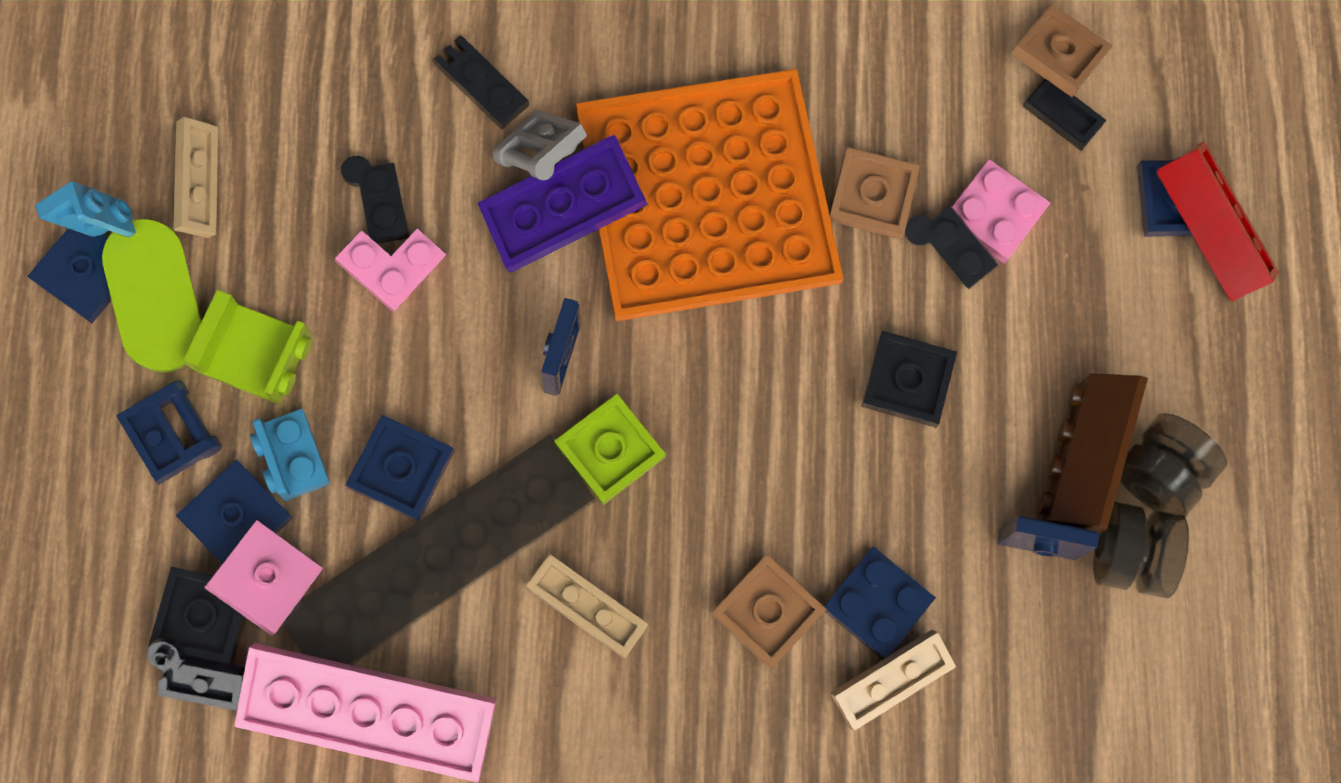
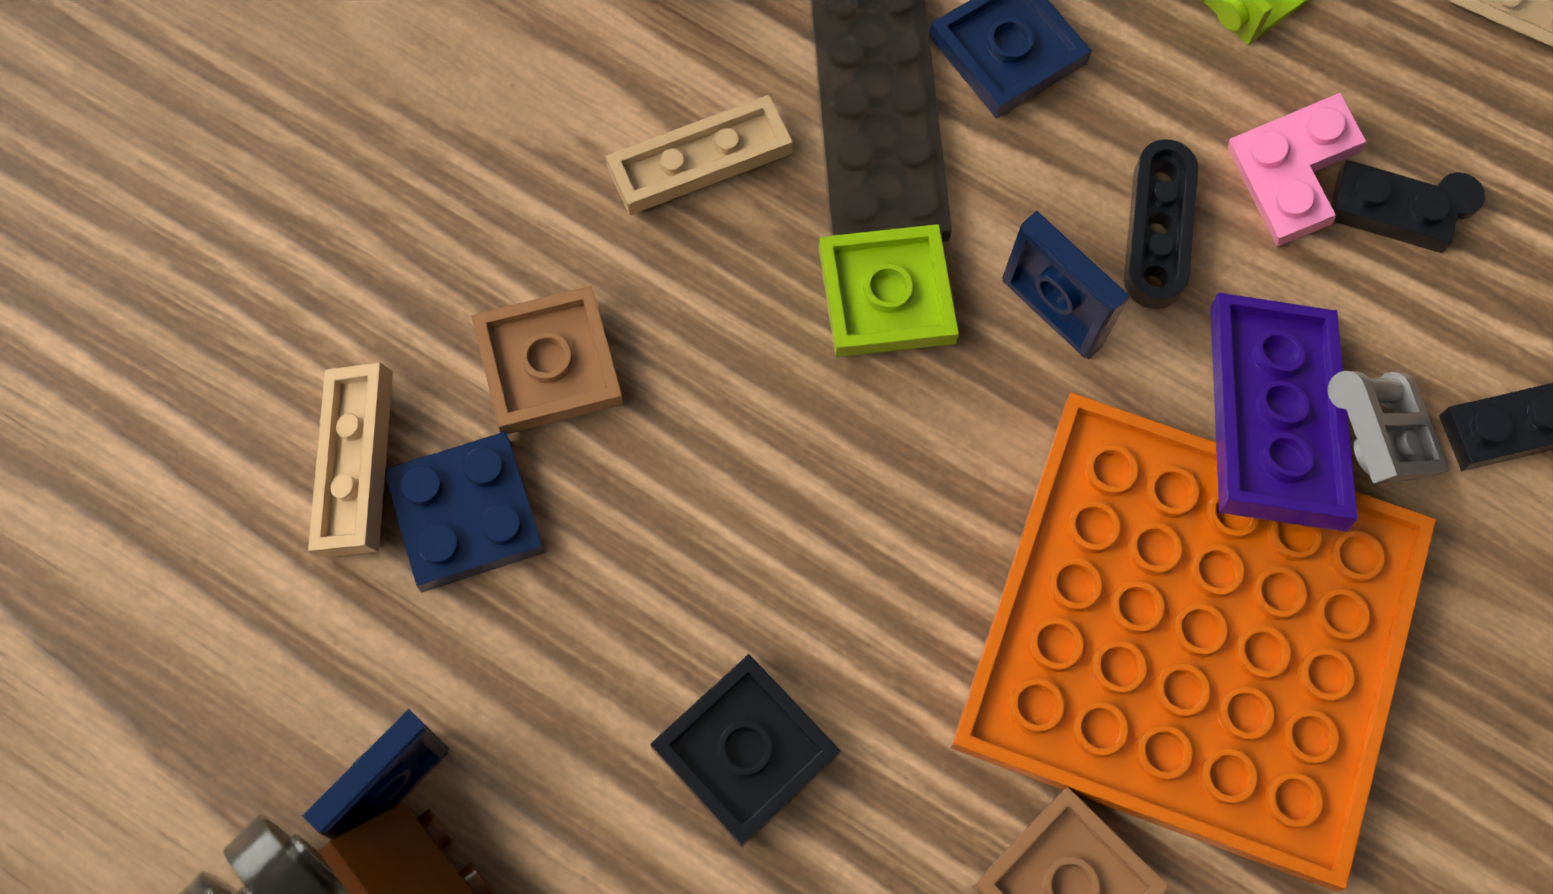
camera: 125 degrees right, 5 degrees down
(456, 321) = (1166, 204): none -> black plate

